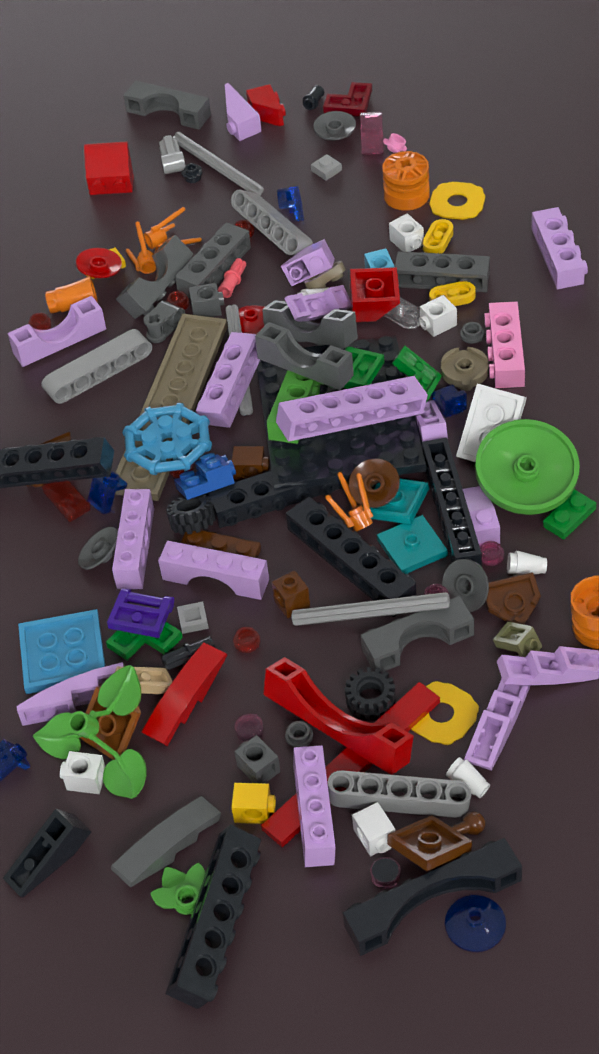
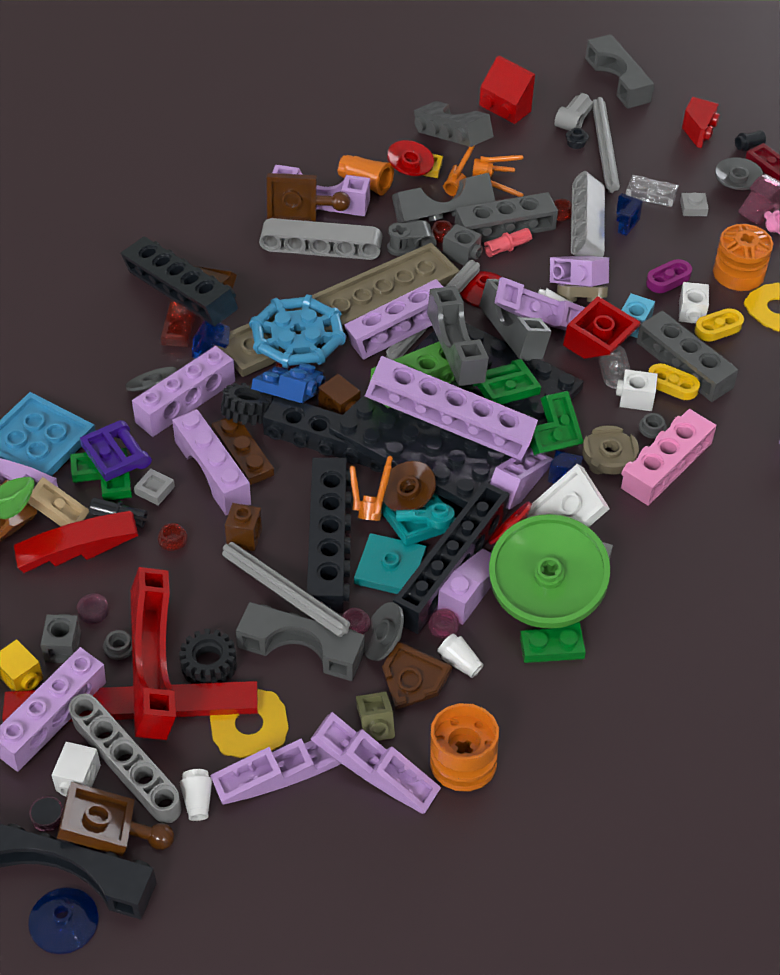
camera: 35 degrees right, 0 degrees up
(40, 321) = (324, 177): clear red plate -> none
(50, 347) = (297, 198): none -> reddish brown plate
(122, 213) = (464, 128): none -> dark grey arch
(242, 118) = (666, 115): lavender slope -> none
(287, 176) = (652, 190): none -> clear plate
(368, 227) = (668, 276): none -> magenta plate
(413, 488) = (436, 516): none -> teal plate
(465, 455) = (520, 514): none -> red dish

